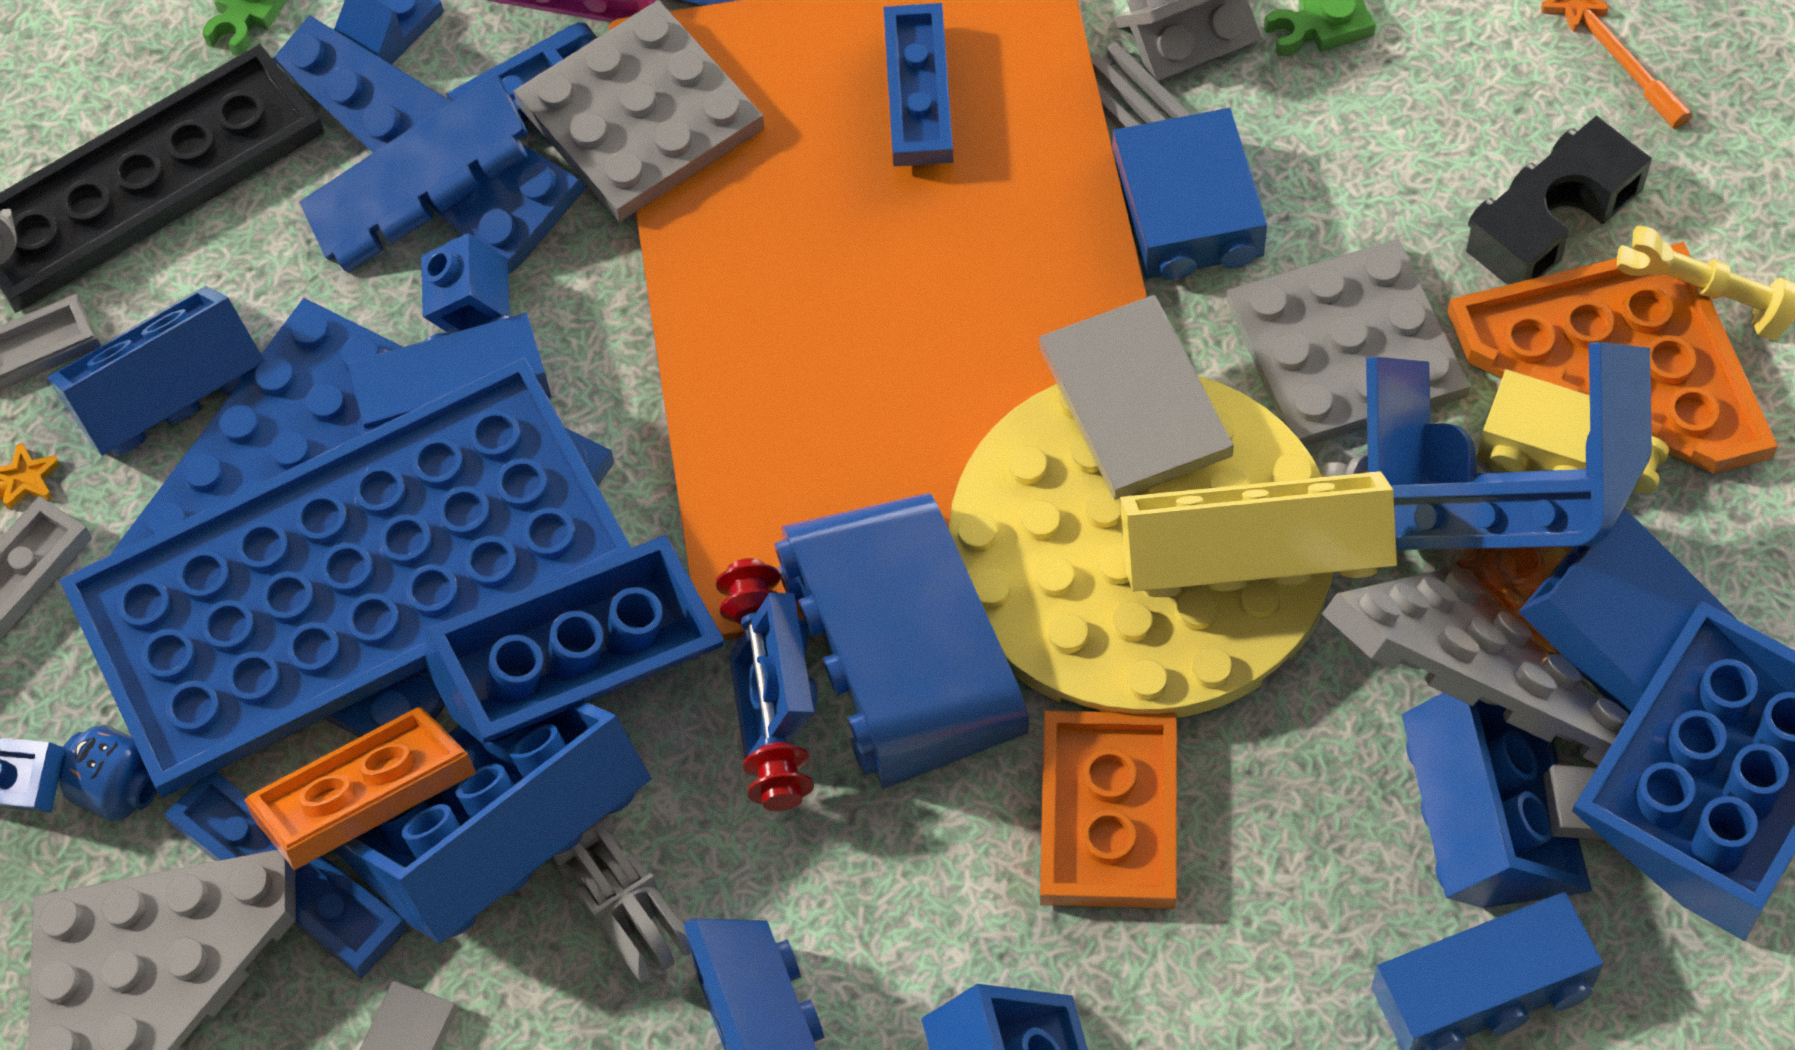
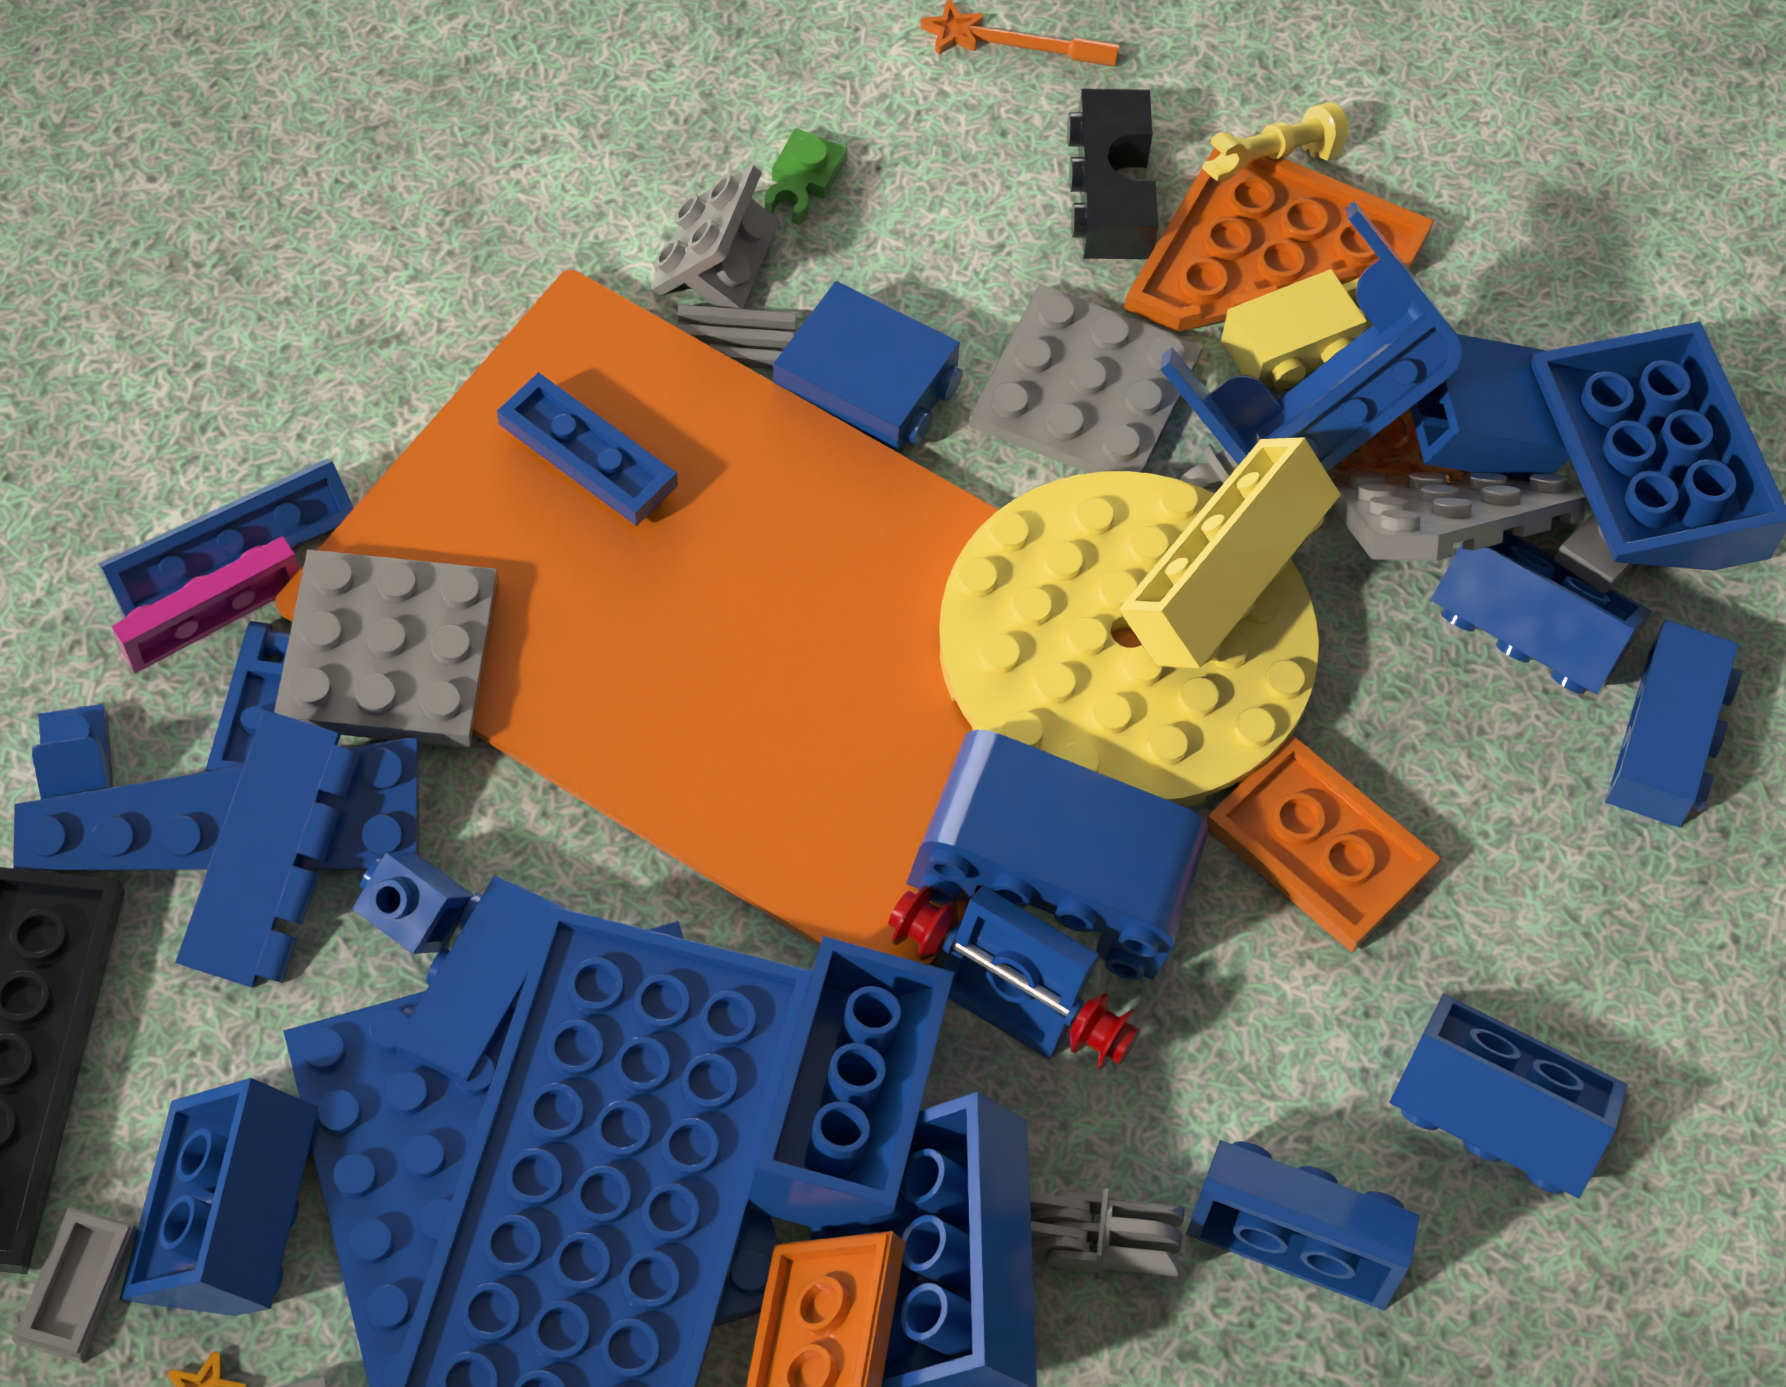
camera: 55 degrees left, 0 degrees up
(1135, 397) = (1024, 536): light grey tile -> none

